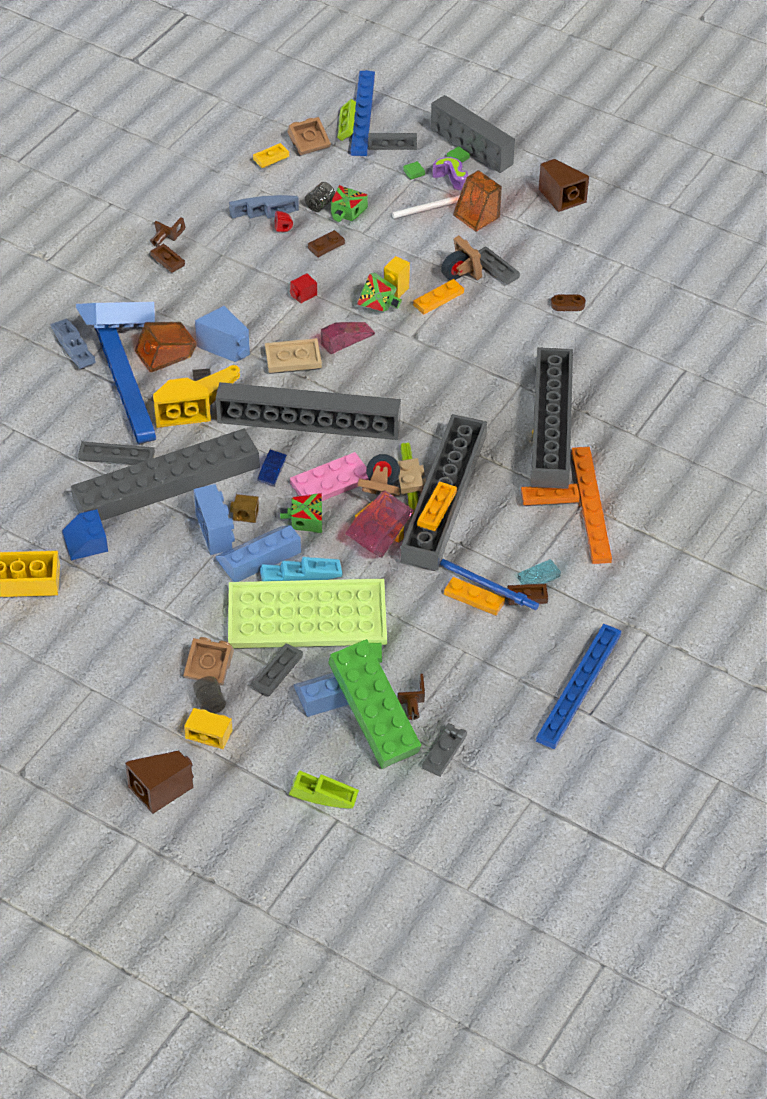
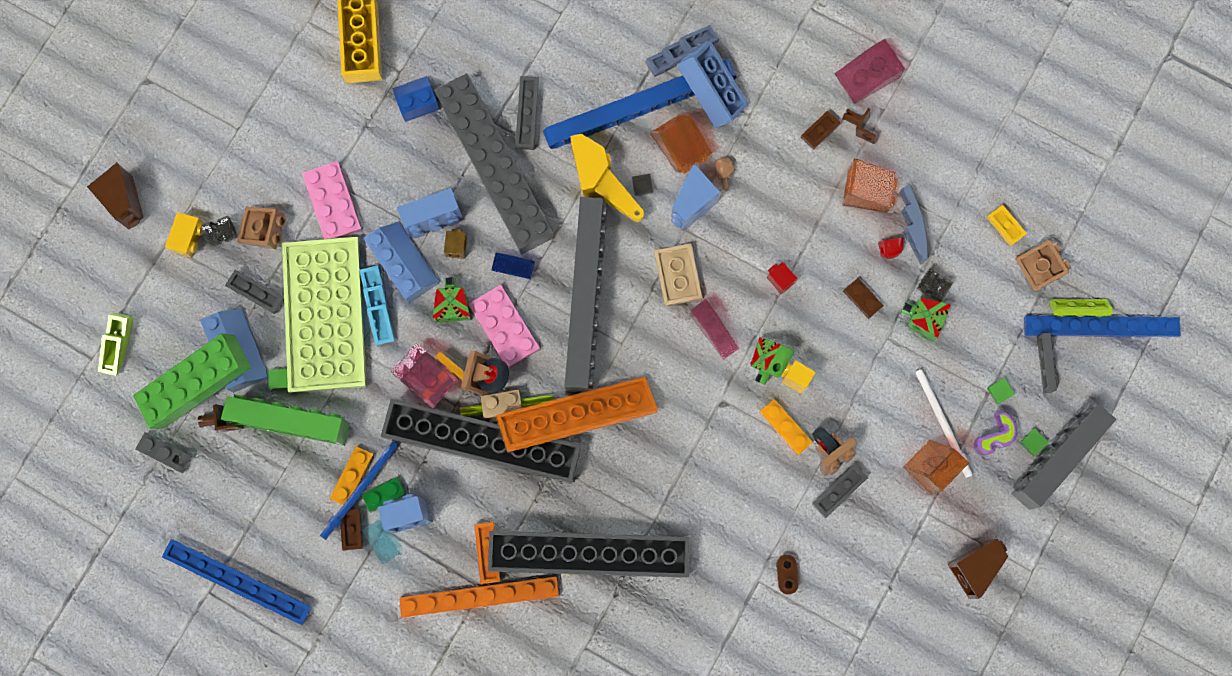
camera: 90 degrees right, 30 degrees up
(117, 222) = (870, 71): none -> clear pink slope
(186, 608) = (332, 201): none -> bright pink plate
(189, 320) = (724, 168): none -> medium nougat piece
(226, 230) = (869, 187): none -> clear orange slope
(417, 634) = (285, 420): none -> bright green brick
(423, 418) = (576, 414): none -> orange plate
(437, 506) = (438, 432): light orange plate -> none
(492, 570) = (382, 493): none -> green plate
(515, 536) = (404, 514): none -> medium blue brick

